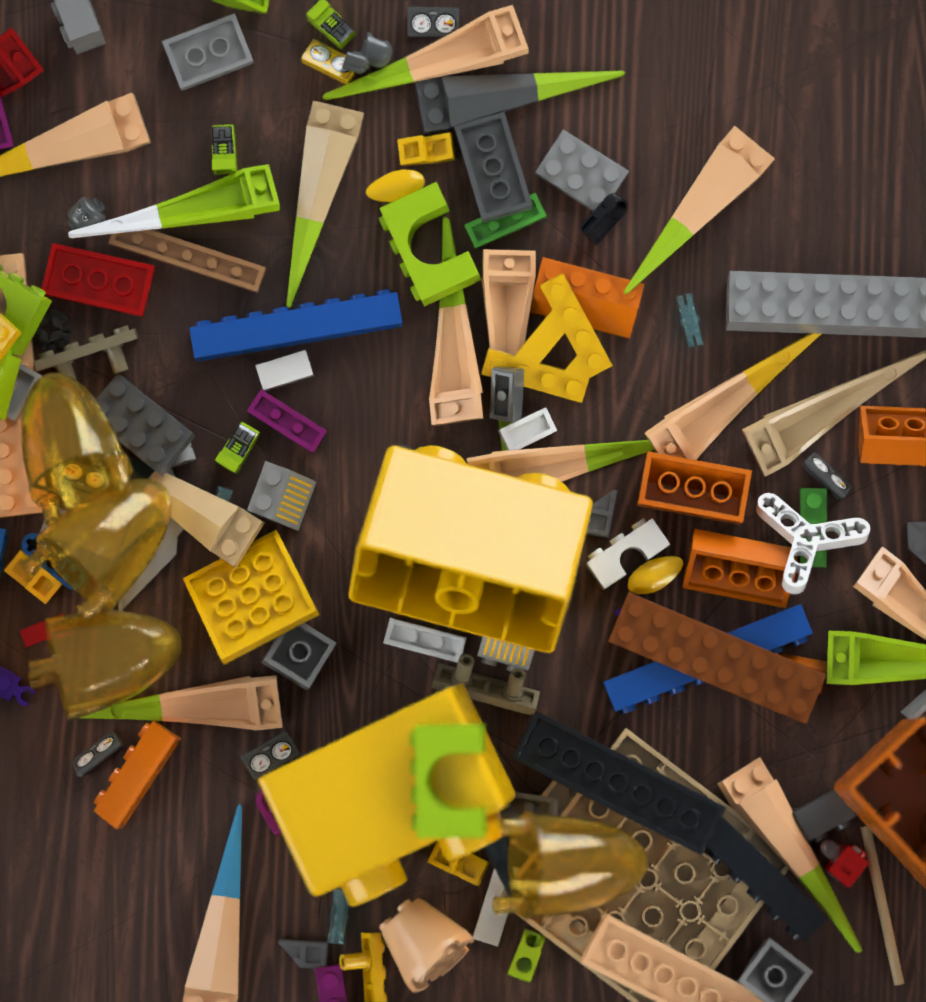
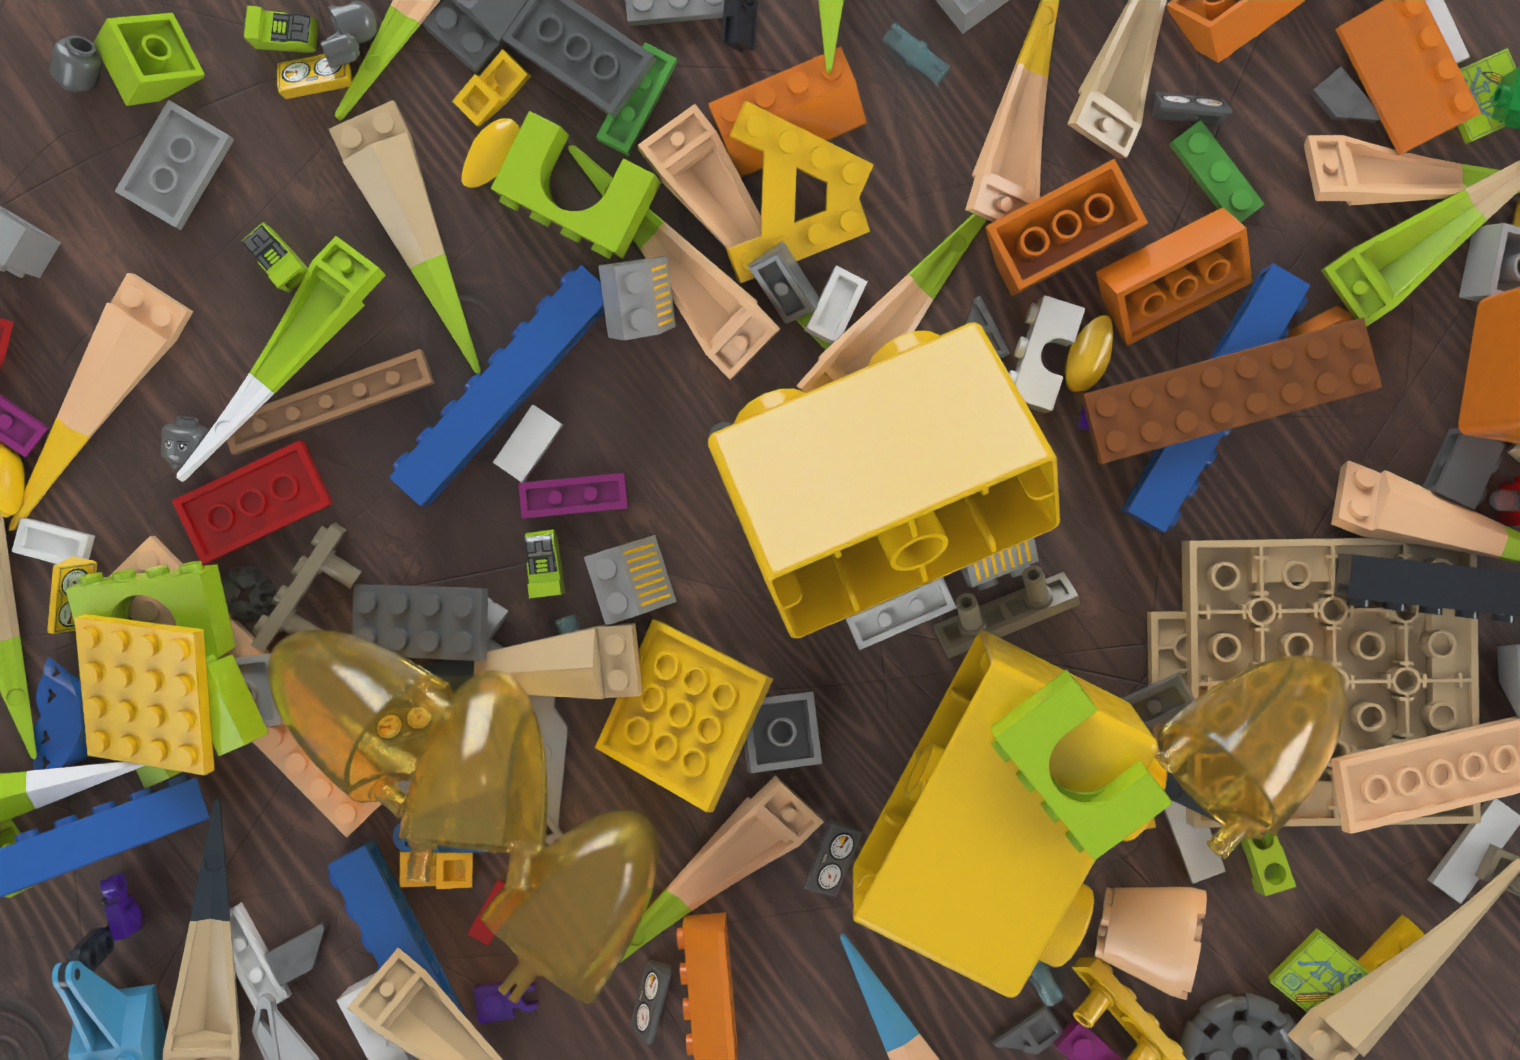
camera: 35 degrees left, 5 degrees up
(414, 336) = (637, 298): none -> light grey slope
(619, 783) = (1238, 606): black plate -> none
(802, 529) = (1231, 199): white piece -> none

